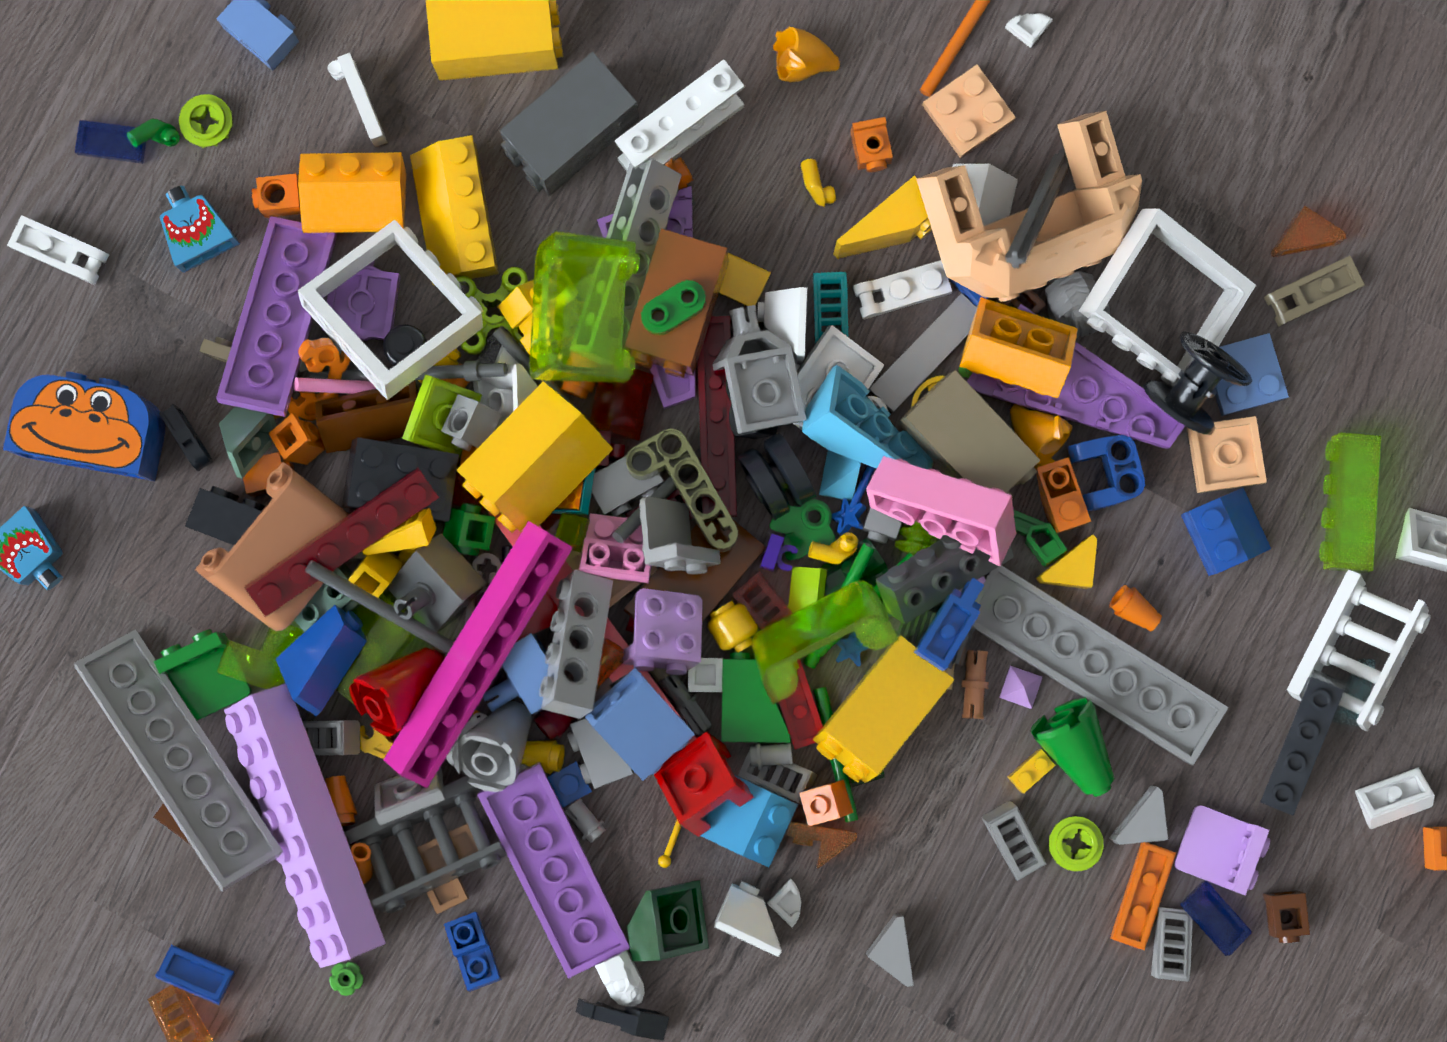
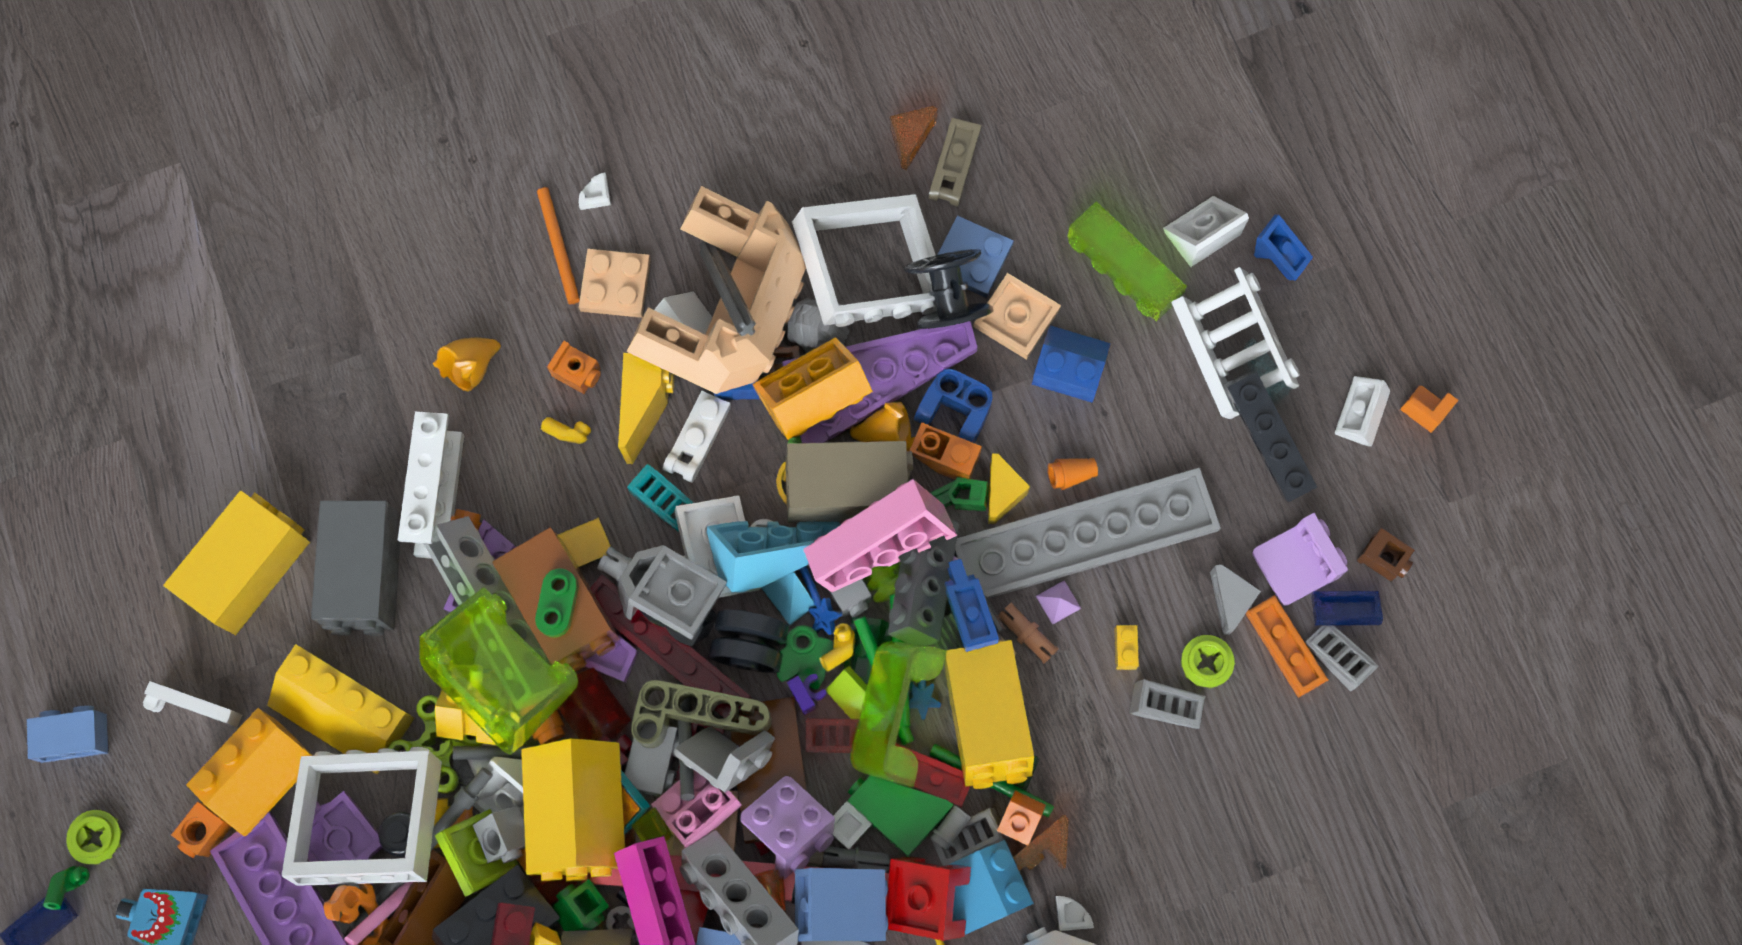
camera: 45 degrees left, 10 degrees down
(732, 627) = (830, 773): yellow head -> none
(786, 317) = (639, 531): white slope -> none
(892, 951) = (1174, 866): light grey slope -> none
(925, 354) = (757, 460): light grey tile -> none
(1077, 745) = (1136, 597): green cone -> none

